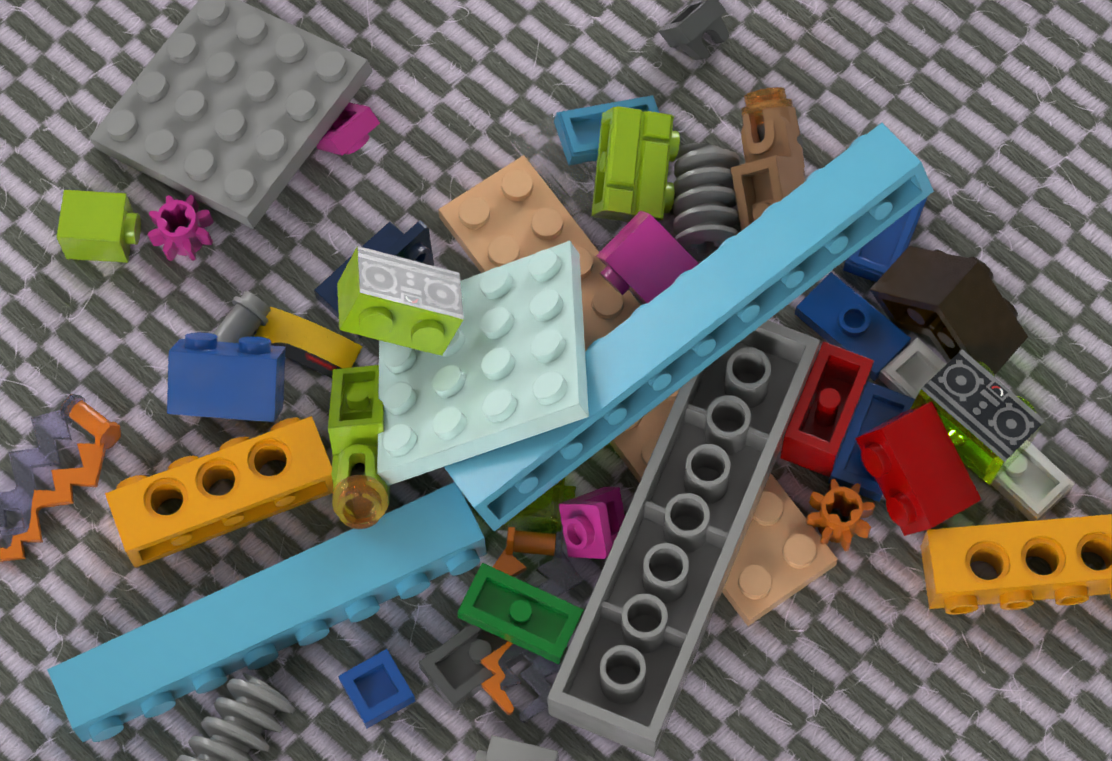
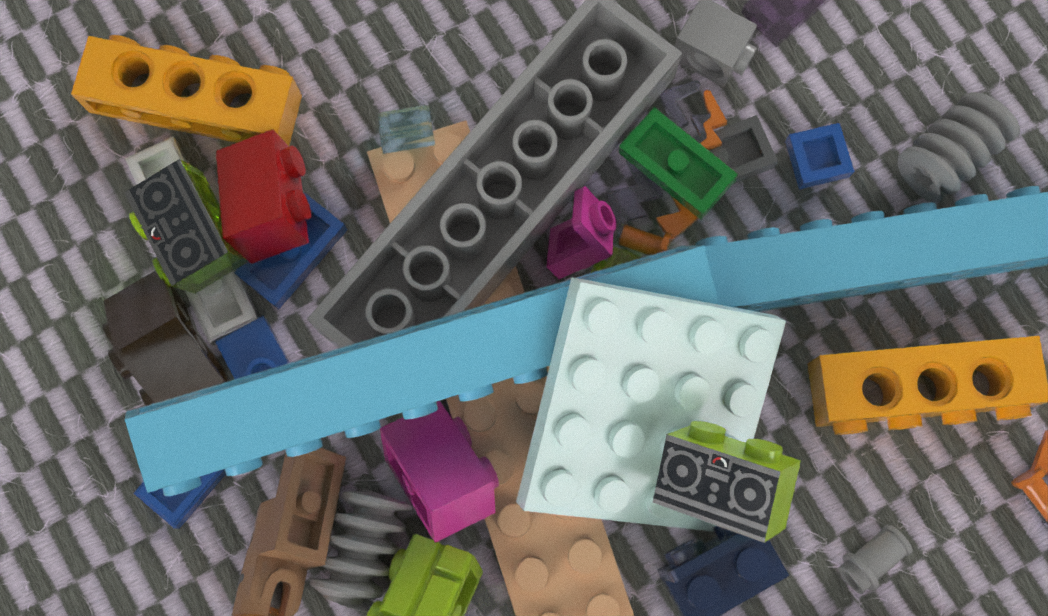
camera: 165 degrees left, 10 degrees up
(226, 378) = (905, 493): blue brick -> none
(309, 342) = (819, 533): yellow sticker -> none
(353, 429) = (794, 384): lime plate -> none
(806, 590) = (406, 129): none -> clear light blue tile
(826, 409) = (314, 278): red brick -> none
(850, 505) = (339, 178): orange gear -> none

